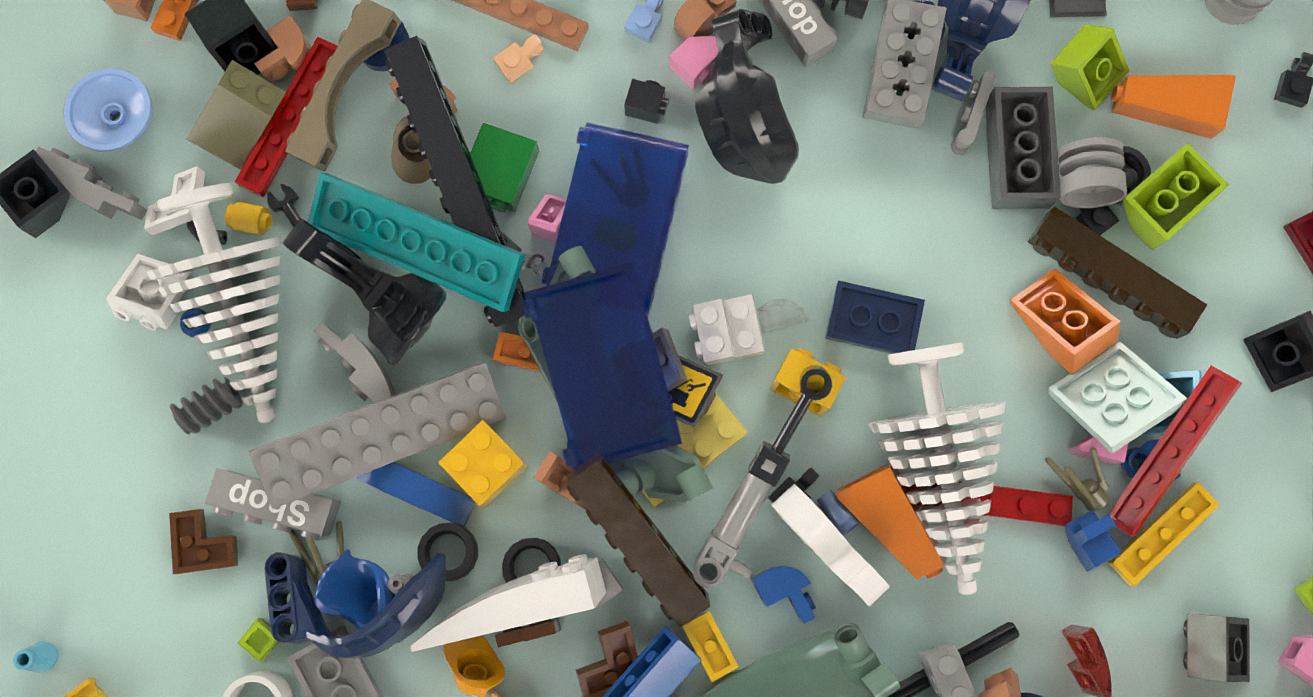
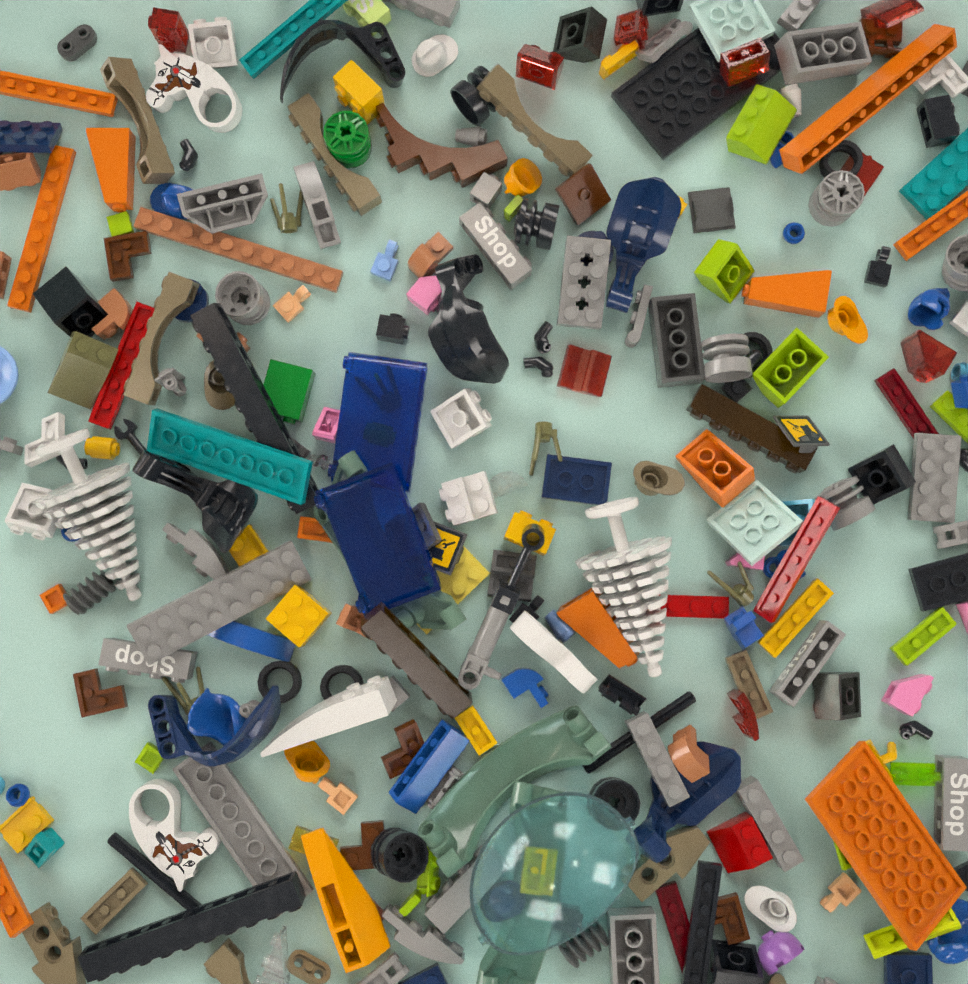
camera: 10 degrees left, 5 degrees up
(66, 669) = (12, 795): none -> blue plate
(158, 410) = (54, 598): none -> orange tile
(350, 139) = (172, 380): none -> light grey hinge
(423, 364) = (247, 546): none -> yellow plate
(447, 31) = (234, 290): none -> light grey wheel
(527, 633) = (344, 735): reddish brown plate -> none
(727, 222) = (461, 417): none -> white plate
(766, 425) = (502, 567): none -> dark grey slope
(834, 254) = (543, 433): none -> olive plant
(837, 162) = (540, 363): none -> black arm
(840, 131) = (541, 339): none -> black arm
(895, 178) = (584, 371): none -> clear red slope
(913, 612) = (616, 690): none -> black hinge
(982, 327) = (657, 479): none -> dark tan piece
(1092, 611) = (748, 682): none -> dark tan plate
(1179, 597) = (807, 662): none -> light grey brick
(1186, 283) = (801, 432): none -> piece
(1189, 22) = (798, 229): none -> blue plate
(1250, 143) = (847, 321): none -> light orange piece
(1254, 388) = (850, 506): none -> light grey wheel

